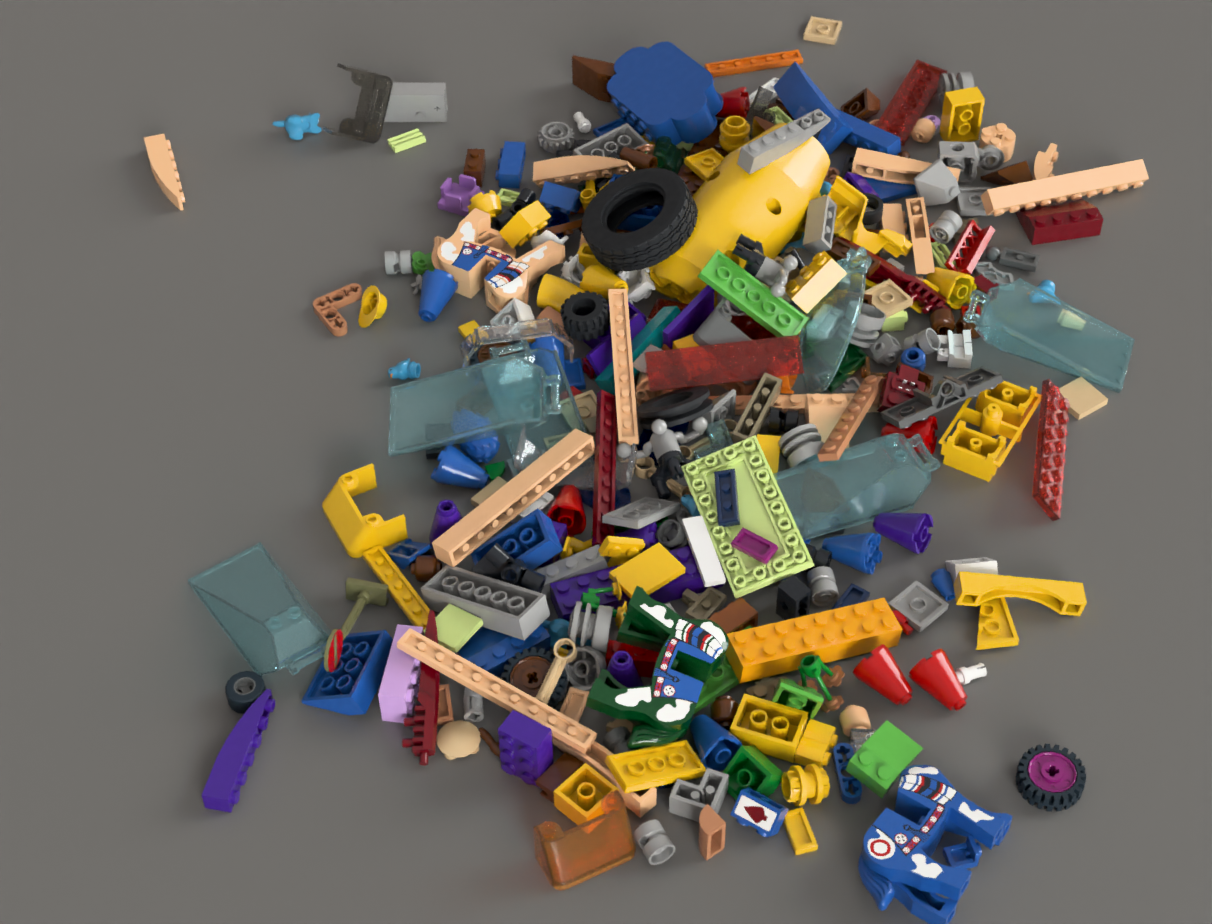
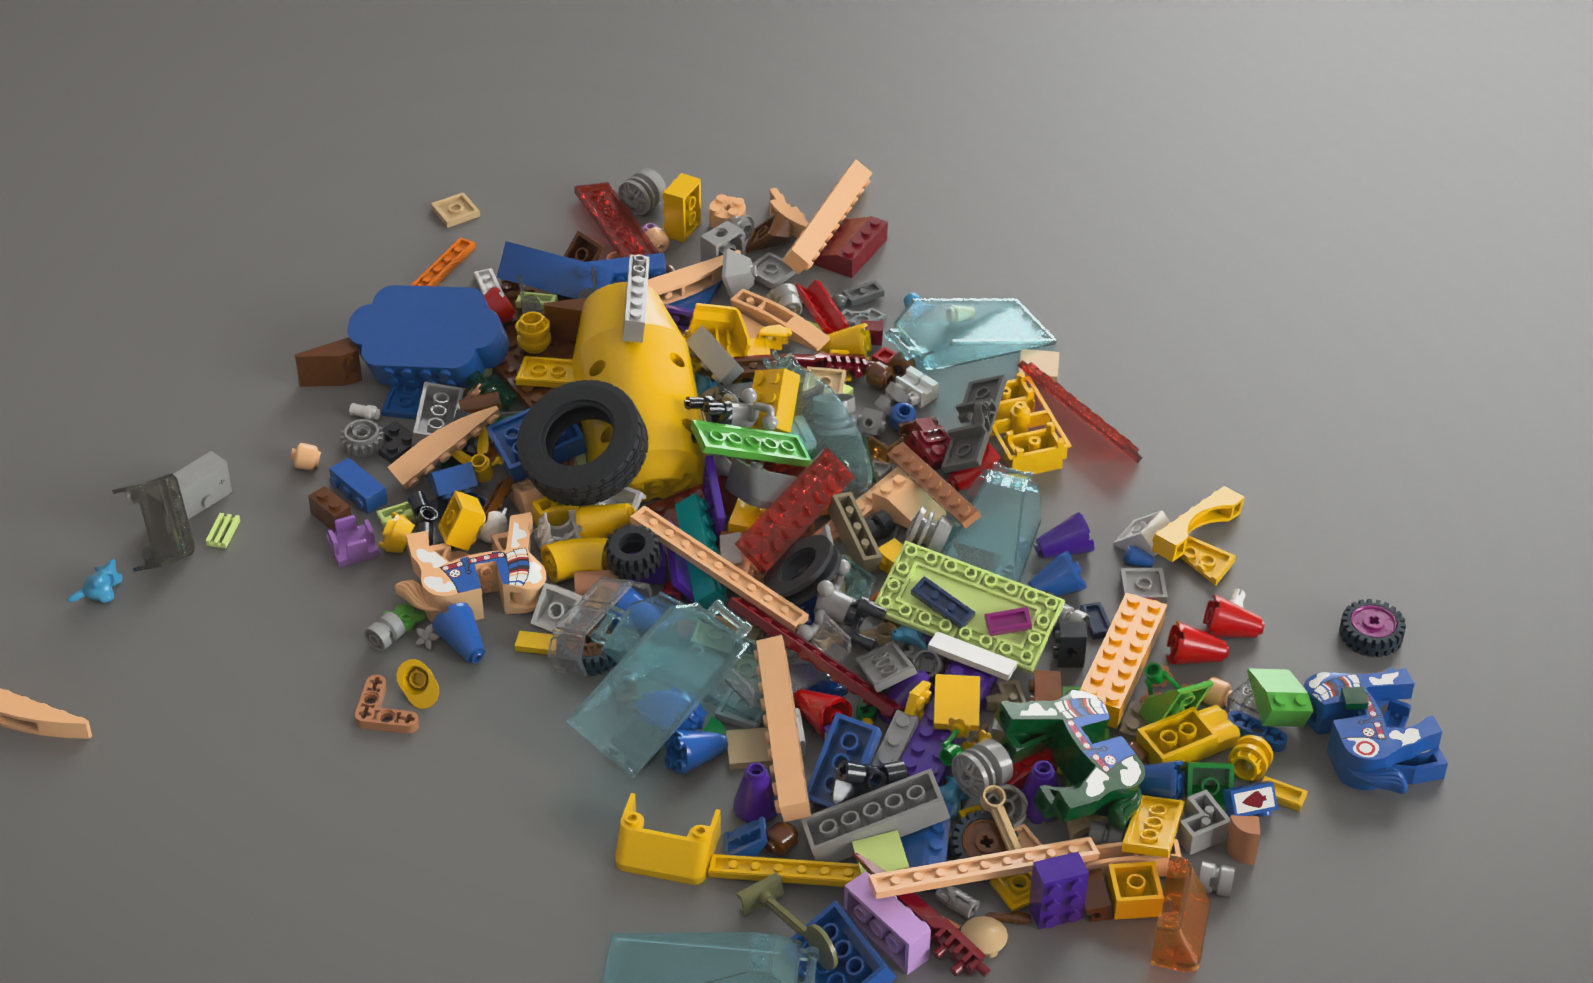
camera: 50 degrees left, 5 degrees down
(404, 370) = (524, 710): dark azure animal -> none
(508, 126) = (305, 456): none -> light nougat head
(924, 805) = (1354, 697): none -> dark green tile

